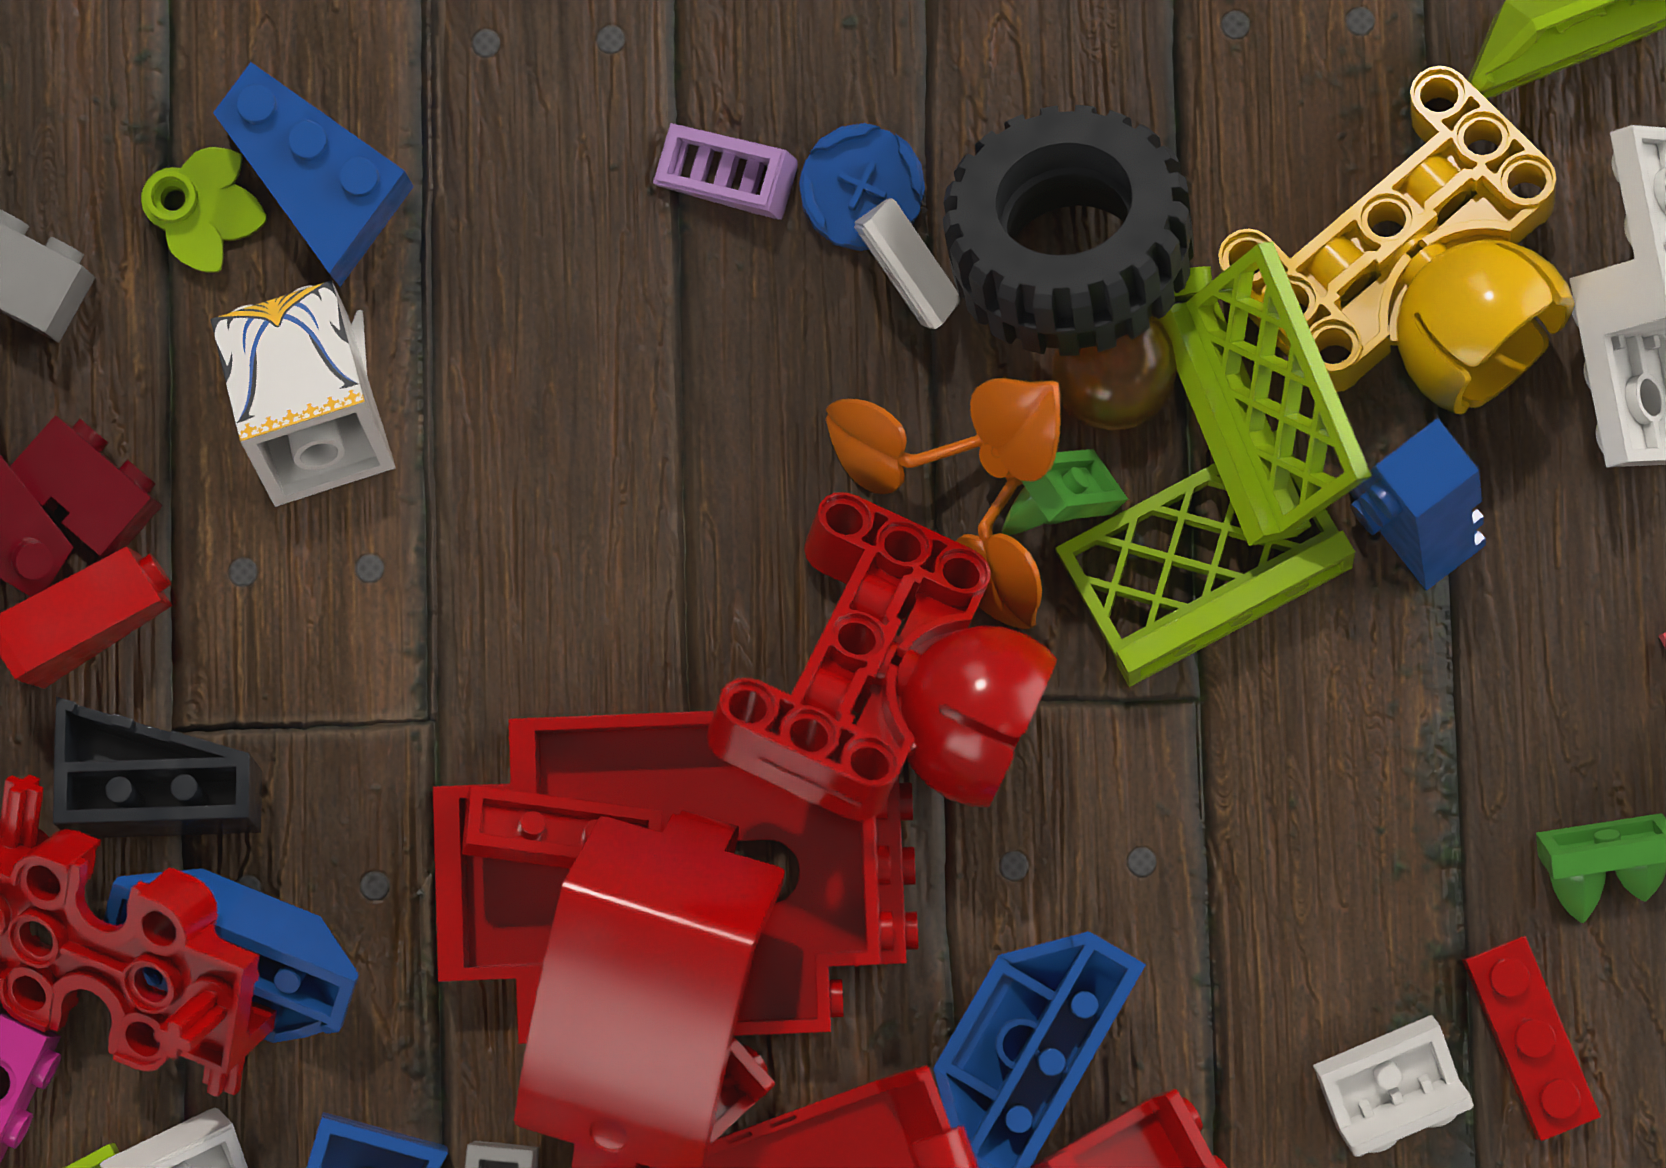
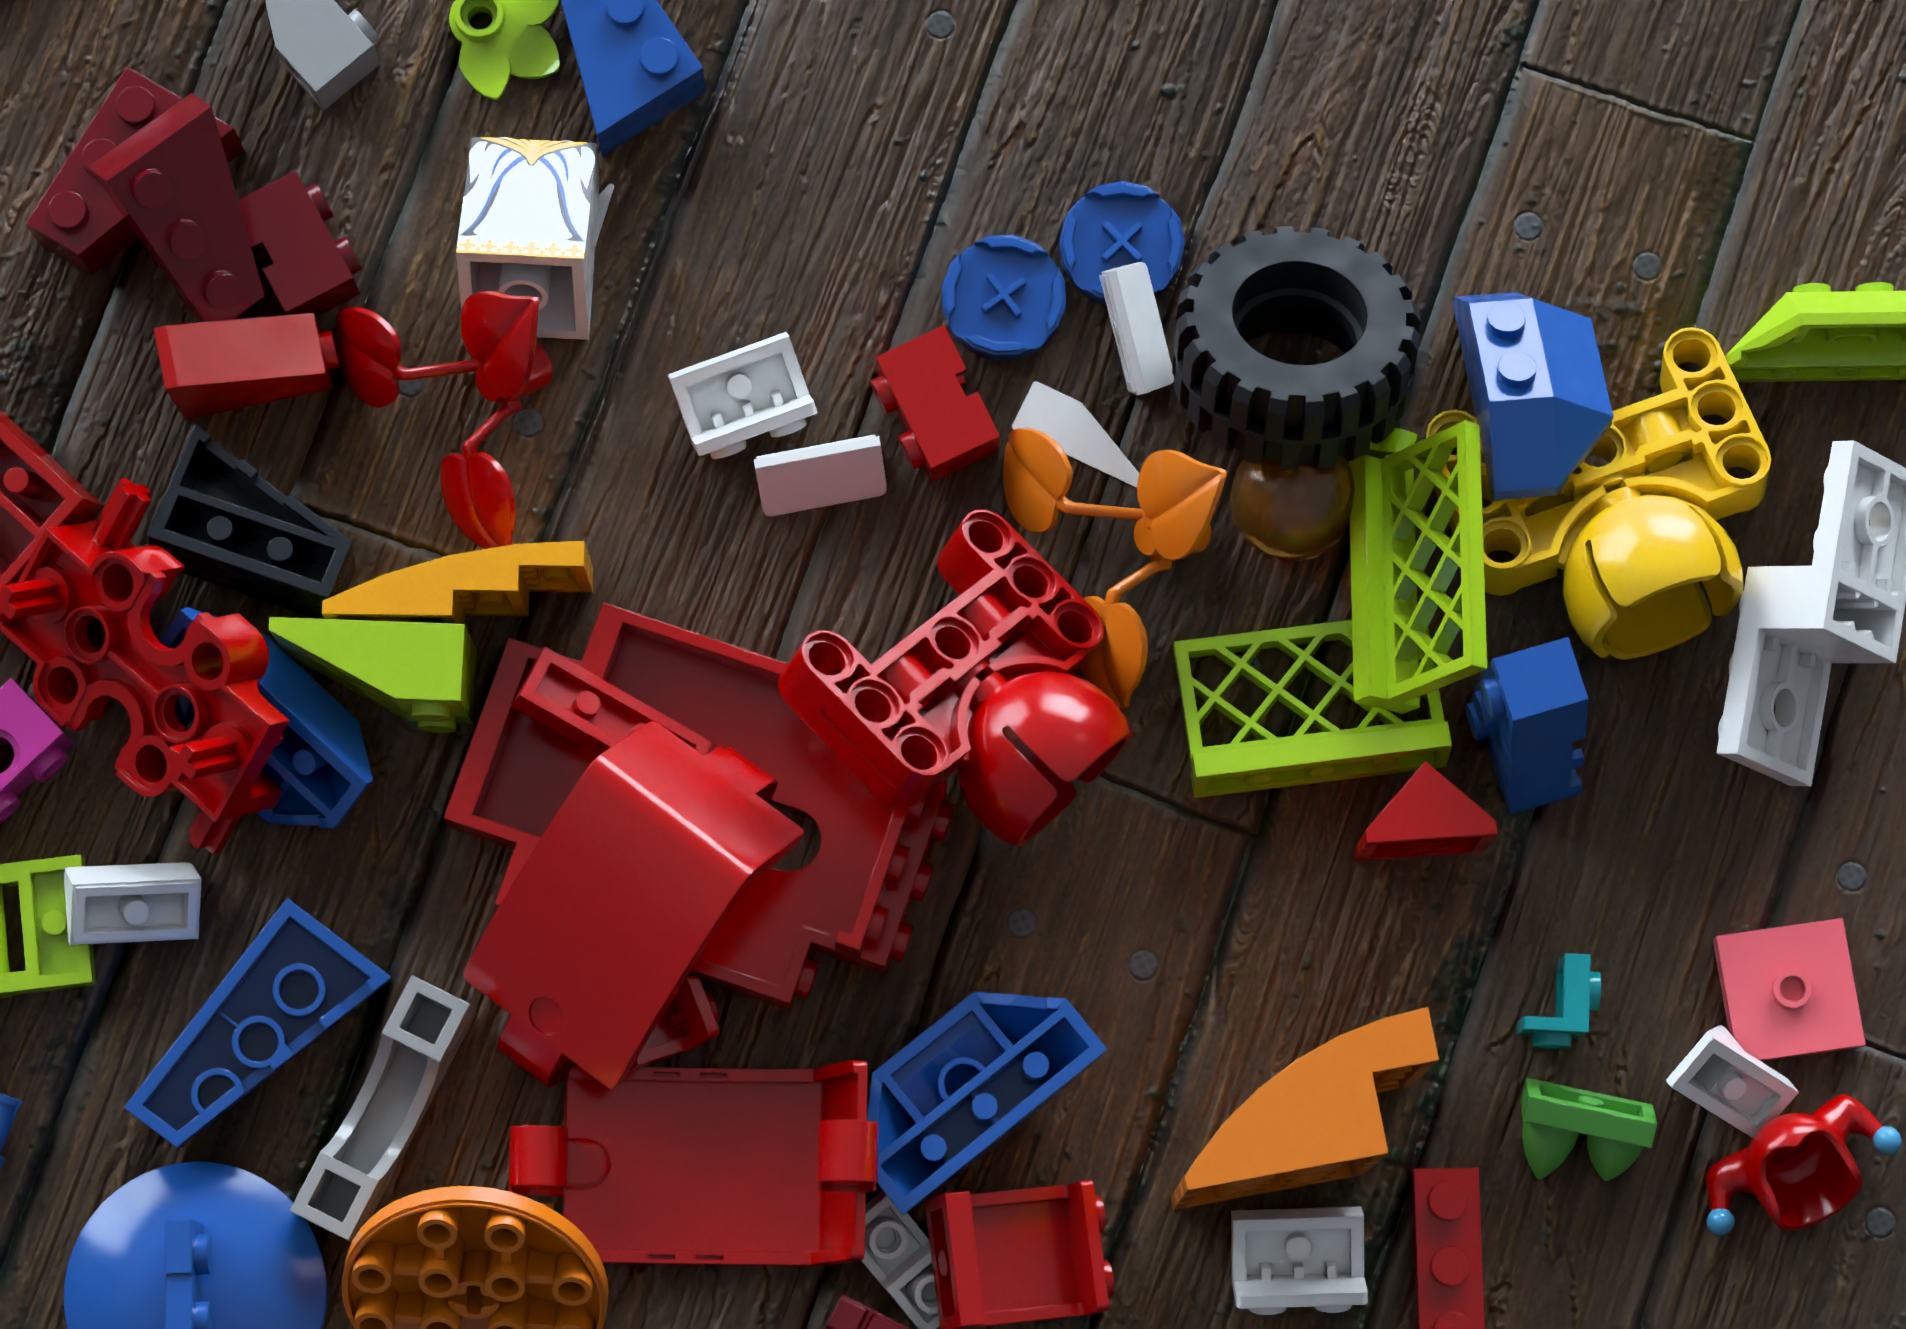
camera: 15 degrees right, 5 degrees down
(331, 526) = (508, 365): none -> red plant
(352, 770) = (468, 584): none -> light orange slope
(354, 851) = (403, 666): none -> lime slope
(563, 469) = (743, 396): none -> white bracket
(665, 516) = (820, 475): none -> slope
(731, 398) = (925, 389): none -> red brick
(770, 280) = (1003, 297): none -> blue tile
(776, 184) = (1039, 193): lavender slope -> none
(885, 382) = (1074, 430): none -> white sticker
(1072, 489) = (1200, 590): bright green tile -> none
(1303, 184) = (1532, 390): none -> blue wedge
(1355, 627) = (1427, 821): none -> red slope
(1361, 962) = (1314, 1116): none -> orange slope
(1554, 741) = (1575, 994): none -> teal bracket

